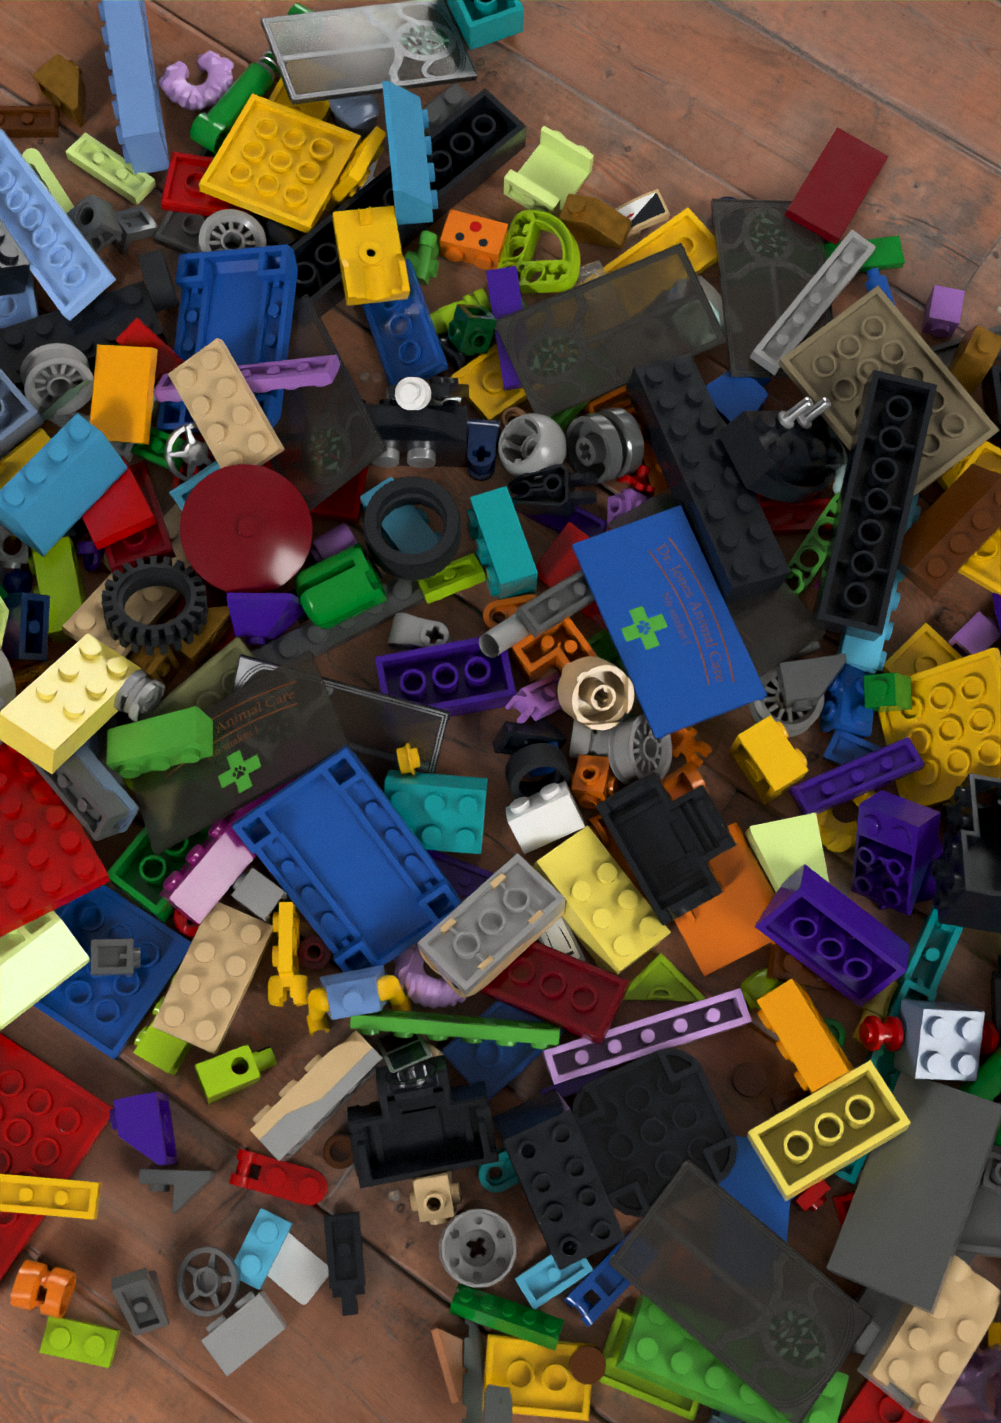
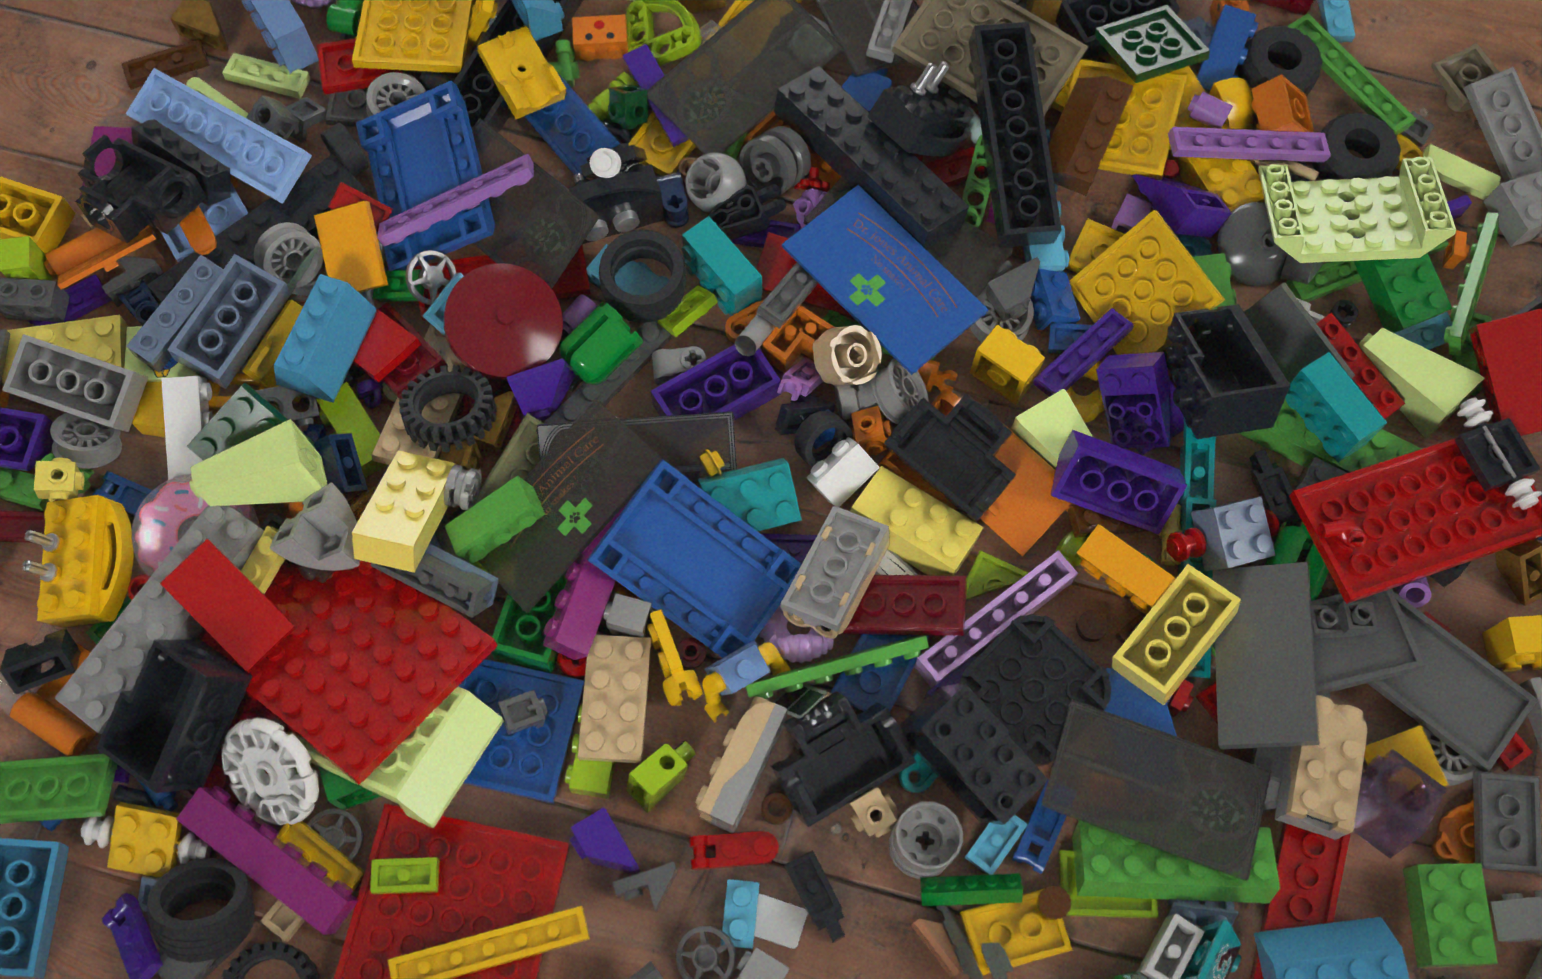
camera: 20 degrees left, 5 degrees down
(225, 408) = (447, 228): tan plate -> none
(887, 692) = (1081, 278): green brick -> none

